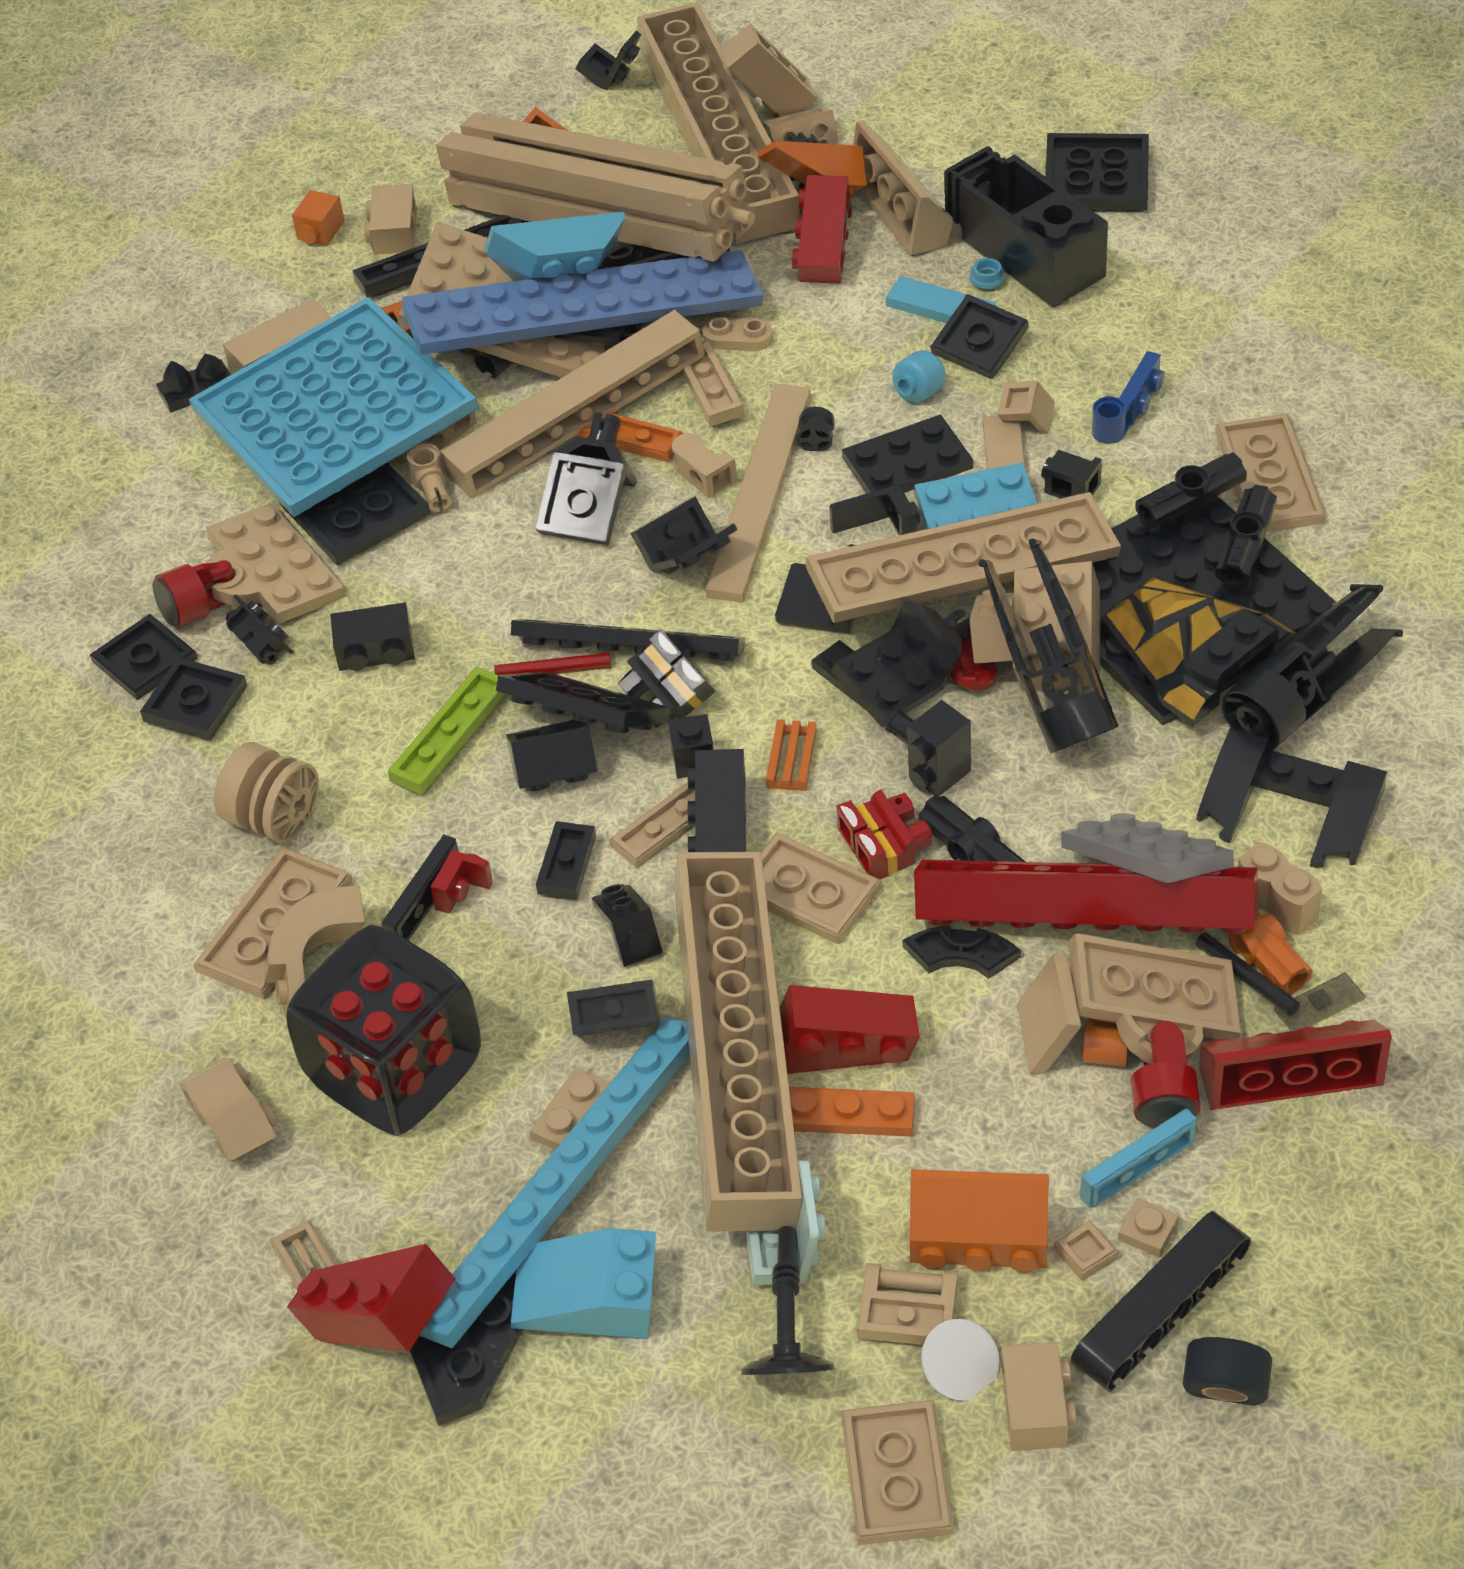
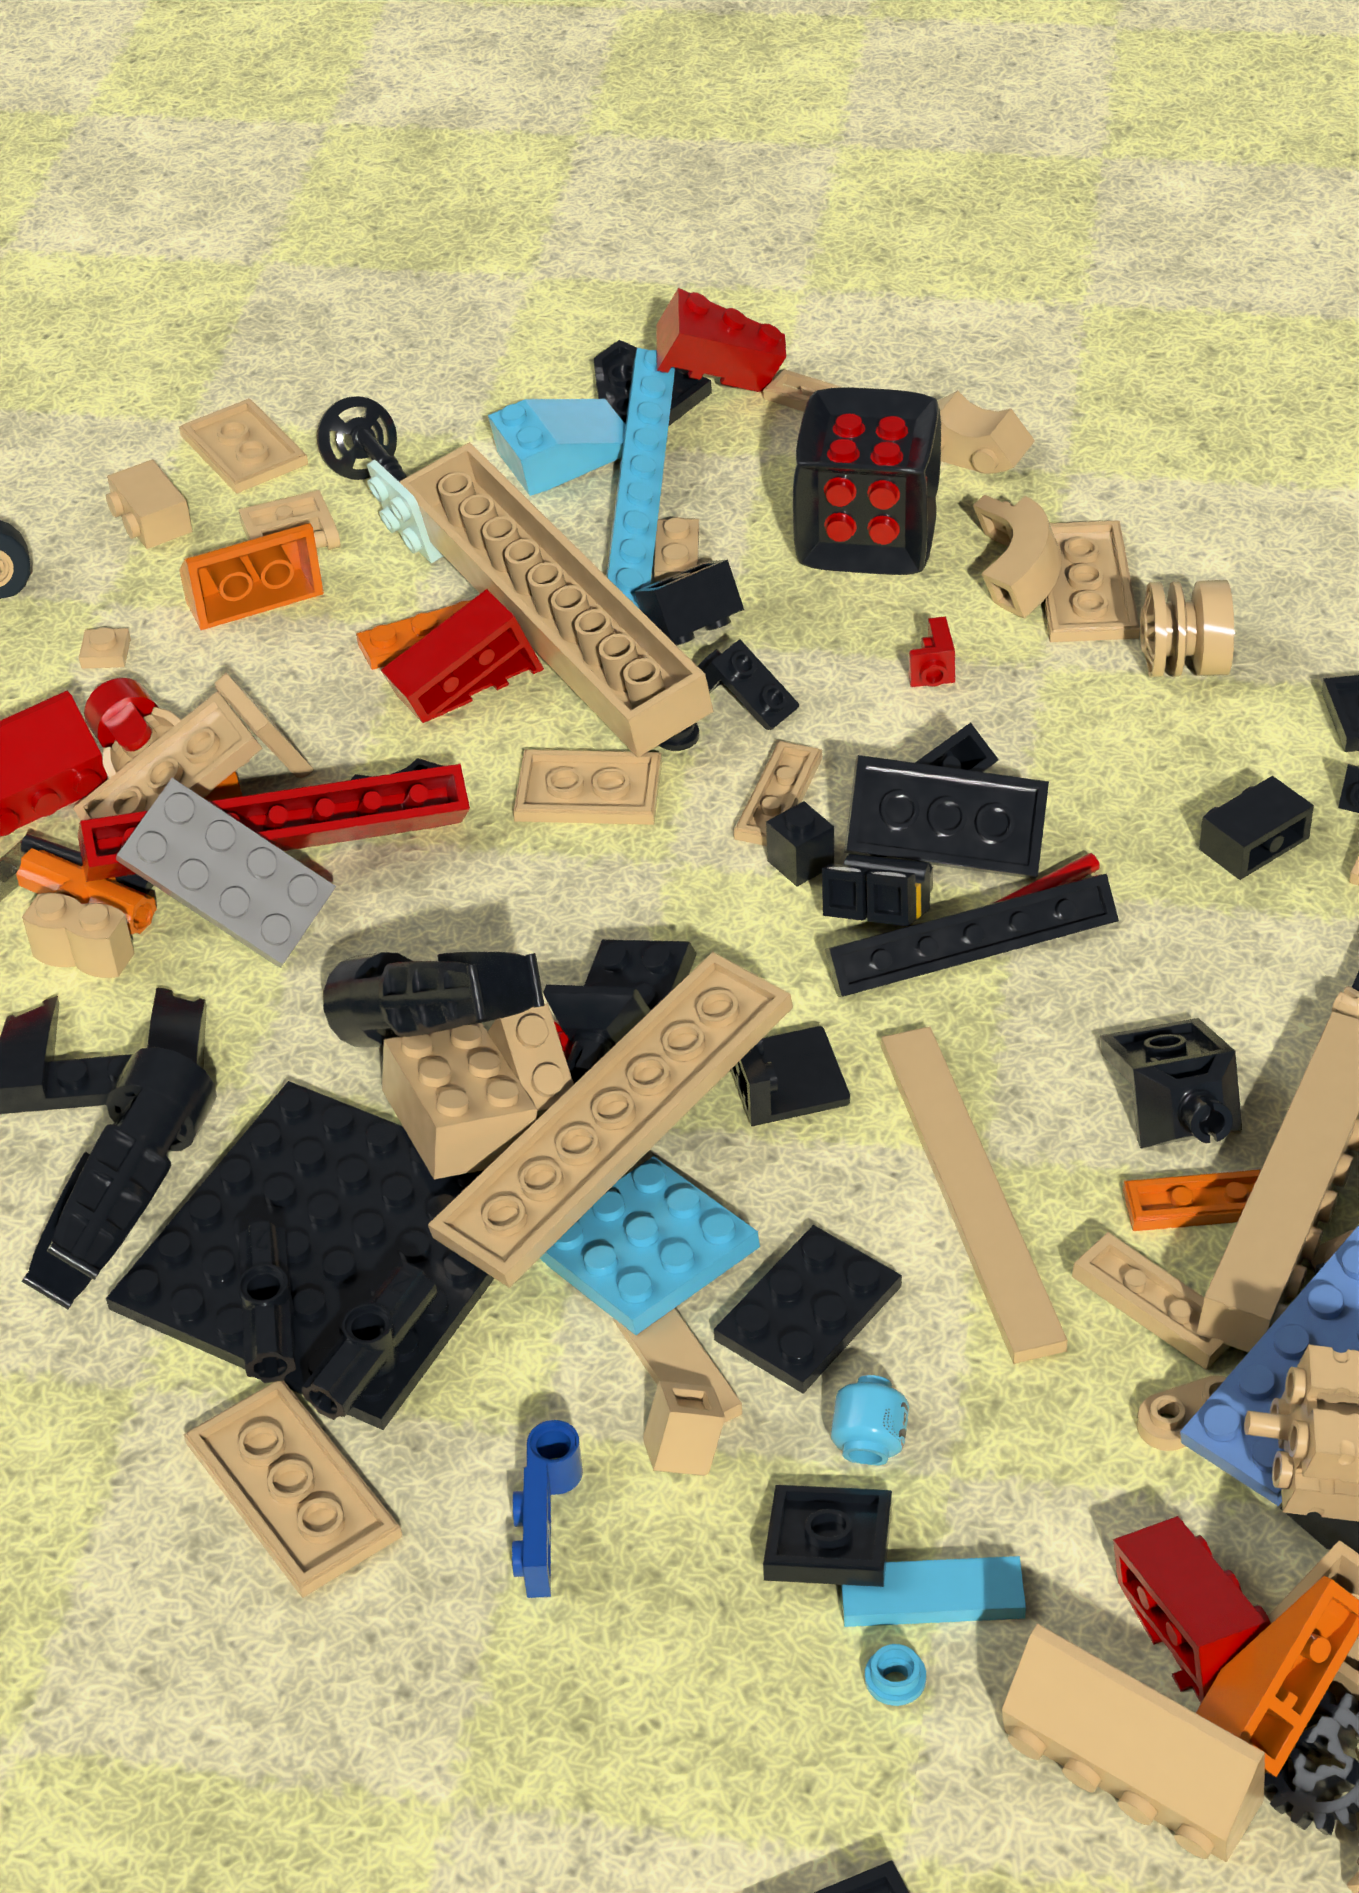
camera: 150 degrees right, 5 degrees down
(417, 897) = (961, 632): black tile -> none
(447, 732) = (1080, 781): lime plate -> none
(566, 860) = (848, 714): black plate -> none
(680, 537) = (985, 1052): black bracket -> none
(701, 466) = (1068, 1175): tan leg -> none
(718, 802) = (717, 789): black brick -> none
(794, 731) = (684, 874): orange tile -> none
(815, 429) = (954, 1282): black wheel -> none
(875, 506) = (785, 1211): black bracket -> none
(879, 835) = (540, 842): red hips -> none
(936, 746) = (520, 913): black brick -> none
(959, 1359) = (225, 509): white sticker -> none
(963, 835) = (434, 872): black piece -> none
(1027, 224) = (872, 1730): black piece -> none
(1071, 475) = (560, 1344): black brick -> none
(1085, 1250) = (154, 616): tan tile -> none
(1138, 1158) = (146, 658): medium azure tile -> none
(1159, 1299) = (65, 597): black beam -> none
(1189, 642) = (276, 1151): wedge -> none

